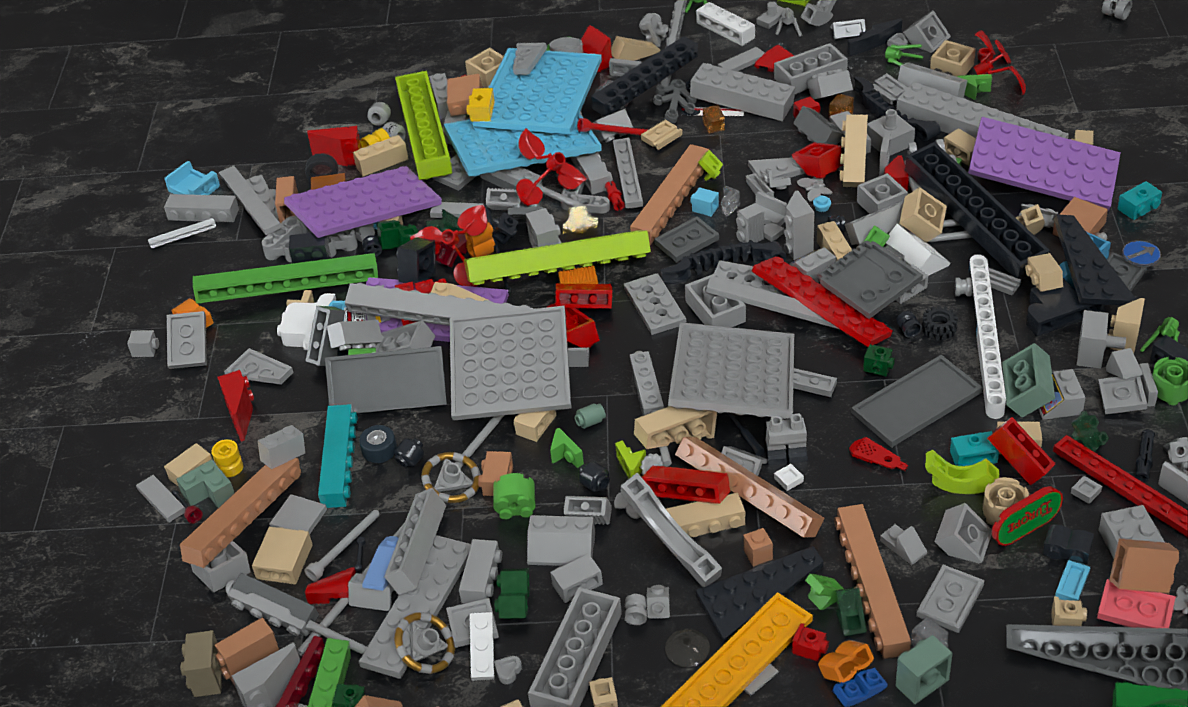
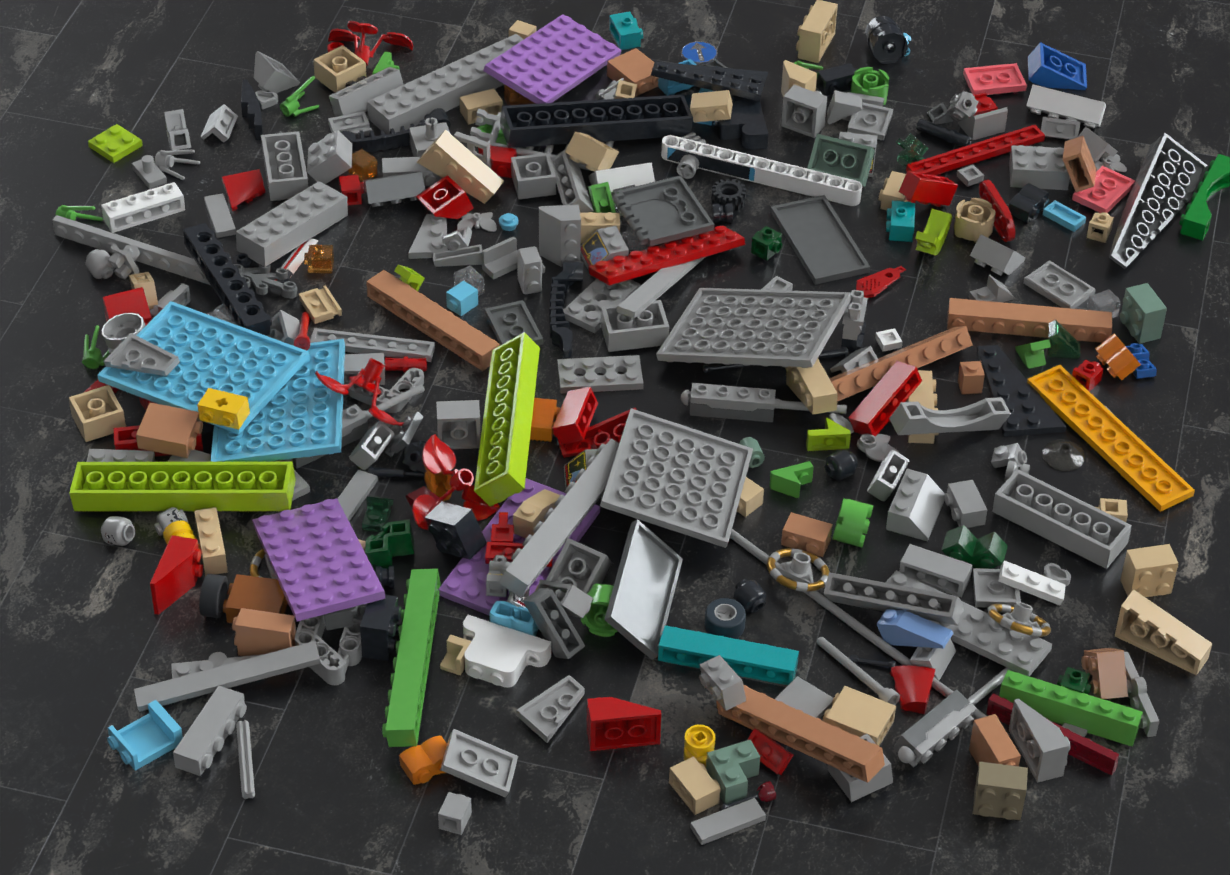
camera: 80 degrees left, 0 degrees up
(579, 220) = (440, 390): clear yellow brick -> none

